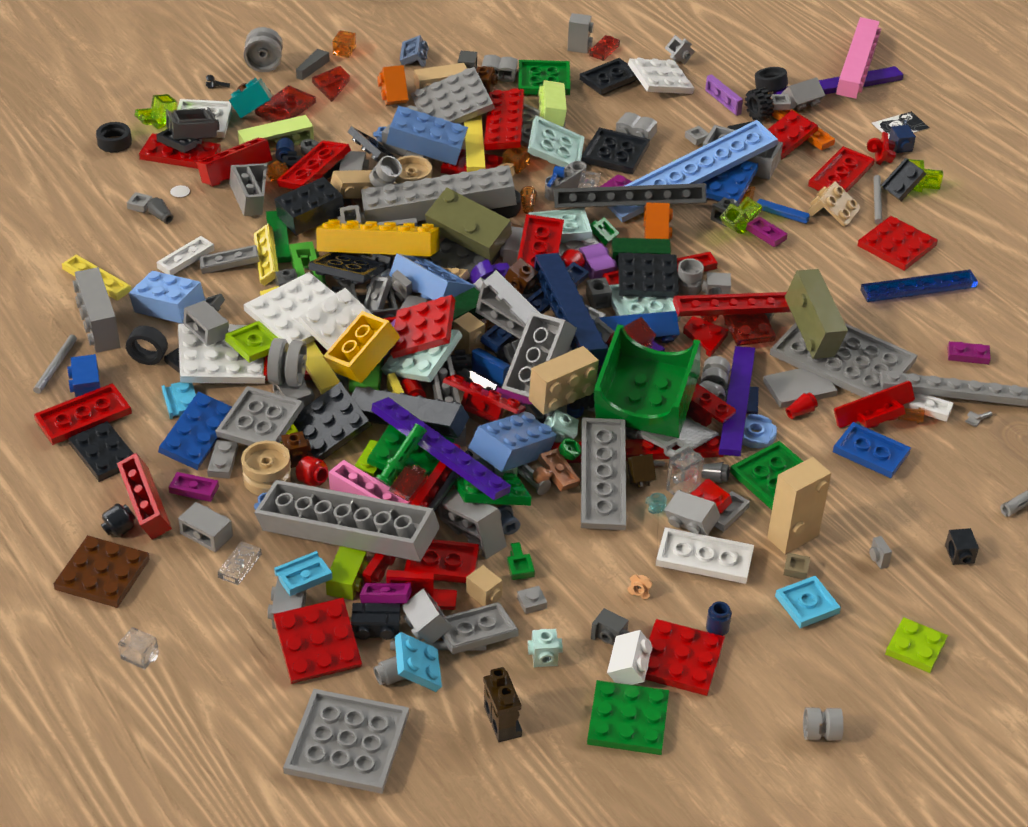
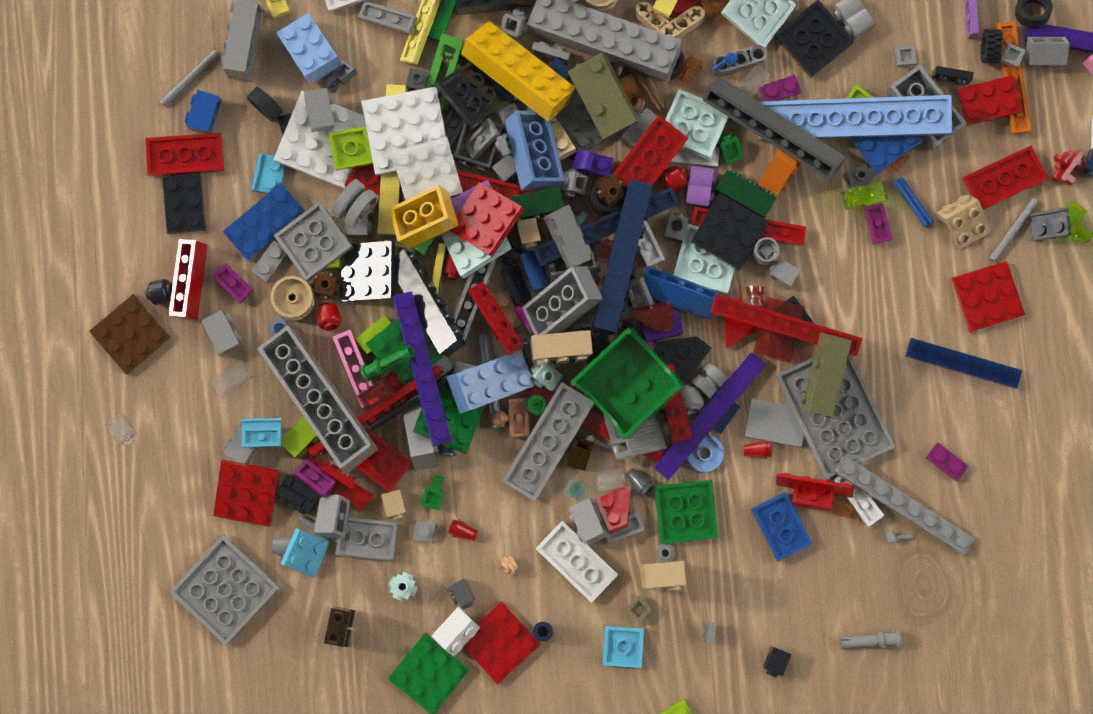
camera: 30 degrees right, 40 degrees up
(569, 579) = (462, 530): none -> red cone

